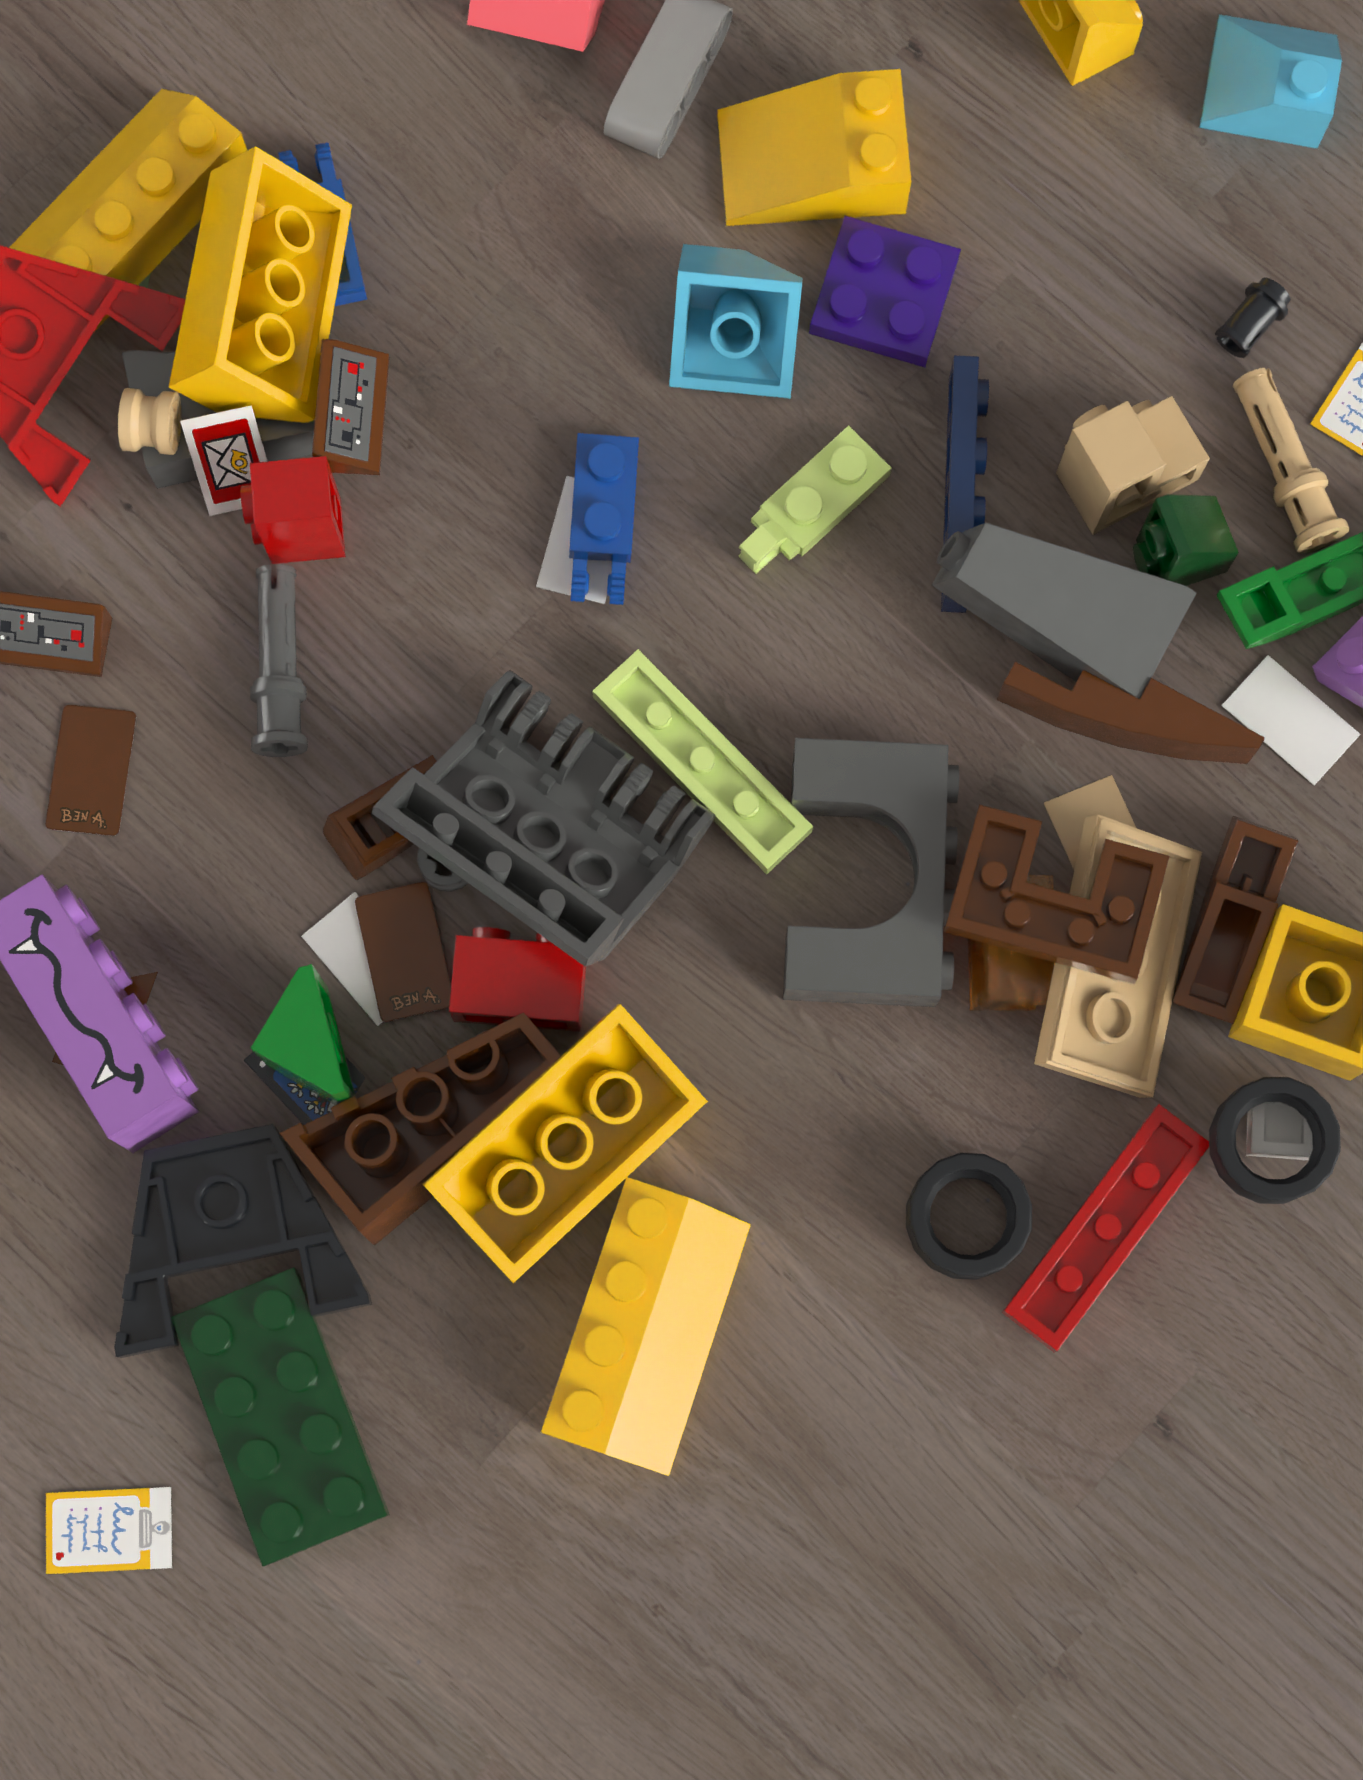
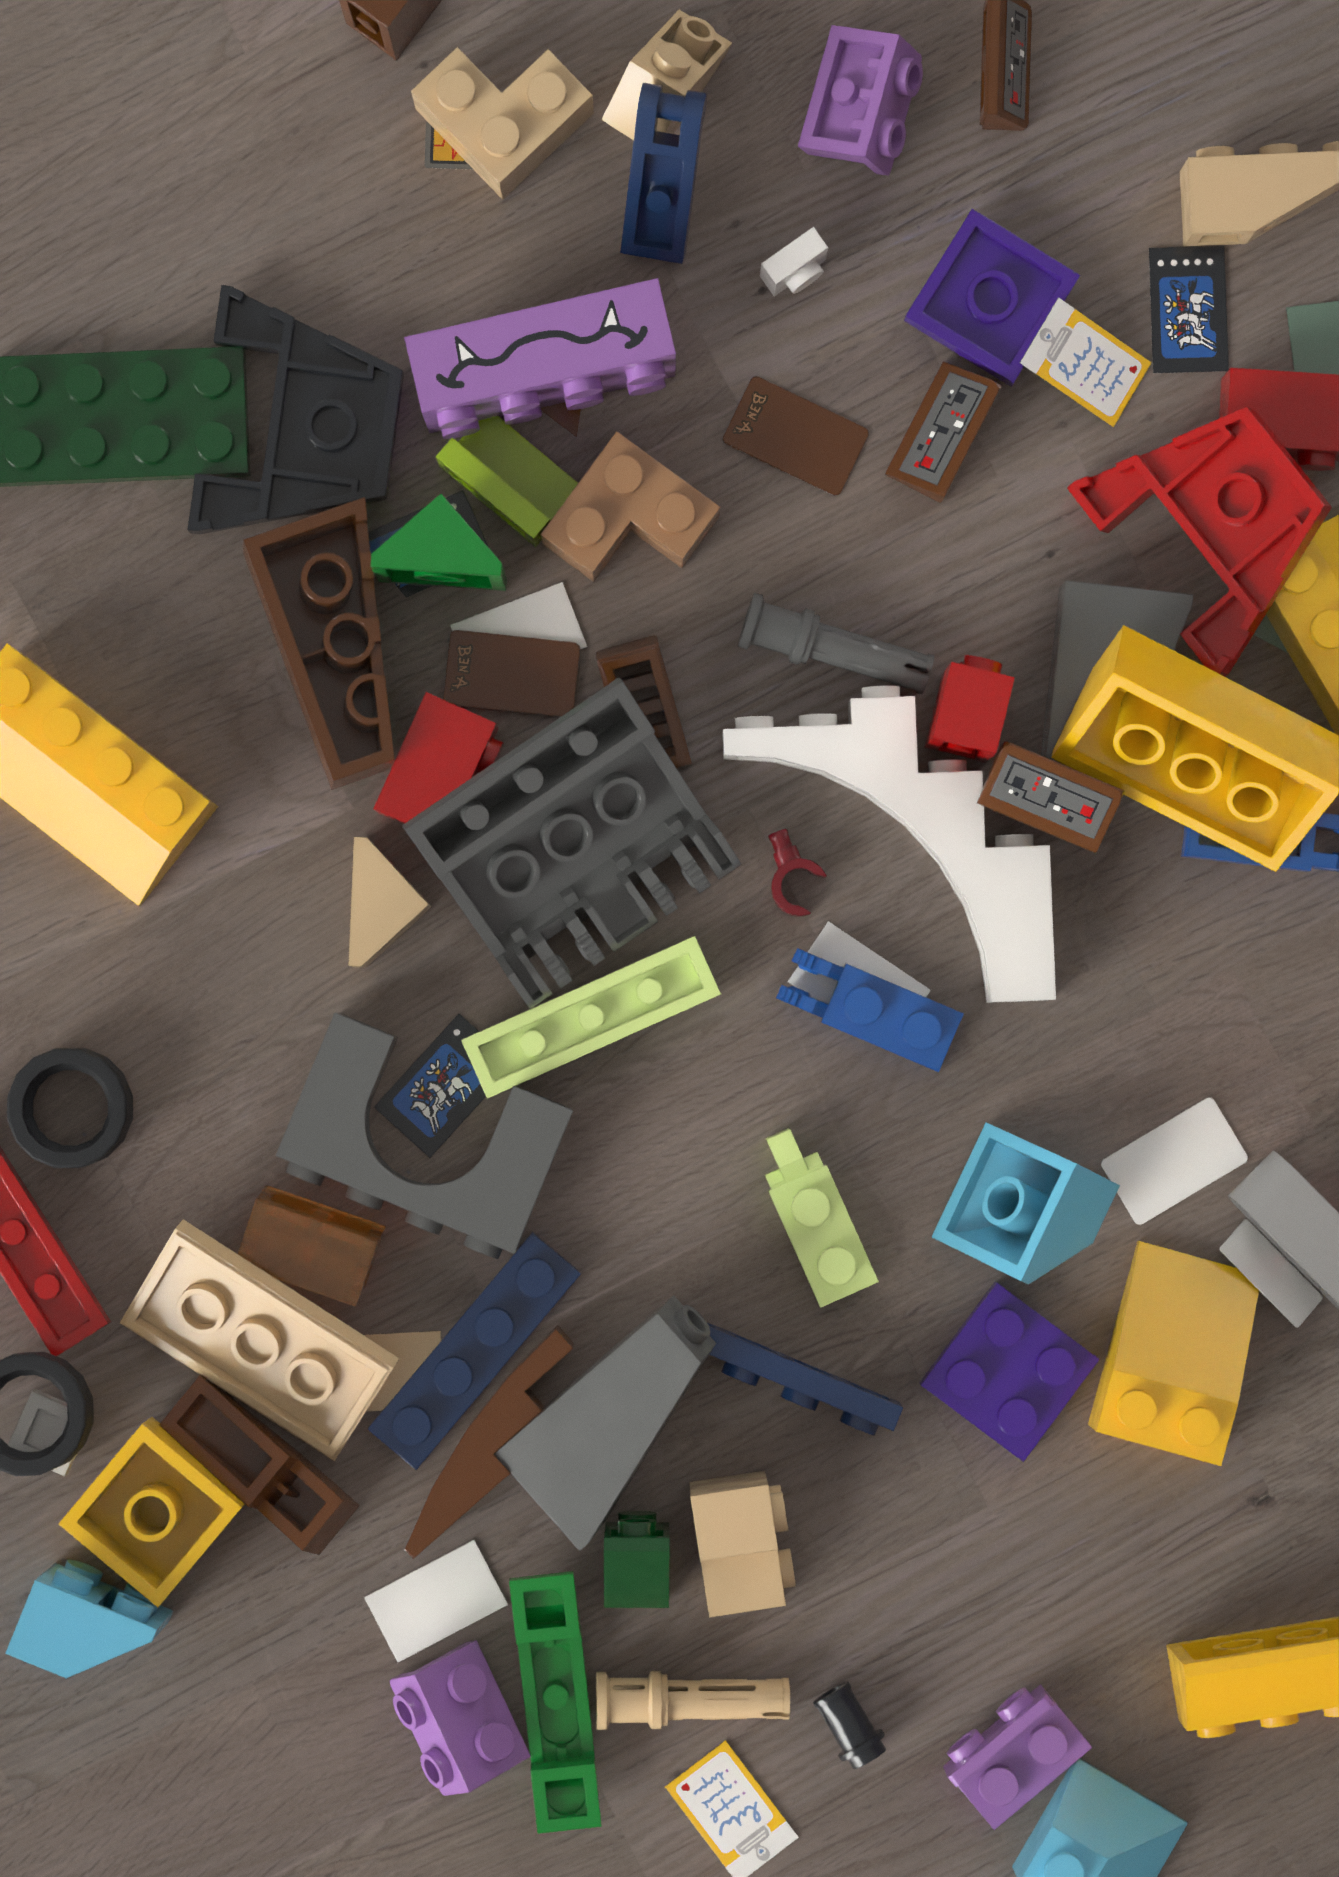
camera: 105 degrees right, 10 degrees up
(108, 1530) = (75, 230): white sticker -> none
(149, 421) = (1101, 597): tan wheel -> none
(196, 889) = (625, 495): none -> medium nougat brick
(219, 1015) = (508, 476): none -> lime panel
(222, 453) = (1047, 663): sticker -> none
(446, 443) = (875, 754): none -> white arch
(493, 636) = (789, 859): none -> dark red piece
(565, 1143) = (258, 757): yellow slope -> none
(642, 217) = (1174, 1161): none -> white sticker
(672, 987) = (381, 904): none -> tan slope
(712, 102) = (1271, 1273): none -> white sticker
(821, 884) = (435, 1090): none -> black sticker
(1052, 762) = (474, 1351): none -> dark blue plate
(1090, 934) = (272, 1321): reddish brown plate -> none
(1220, 172) = (1015, 1754): none -> medium lavender bracket

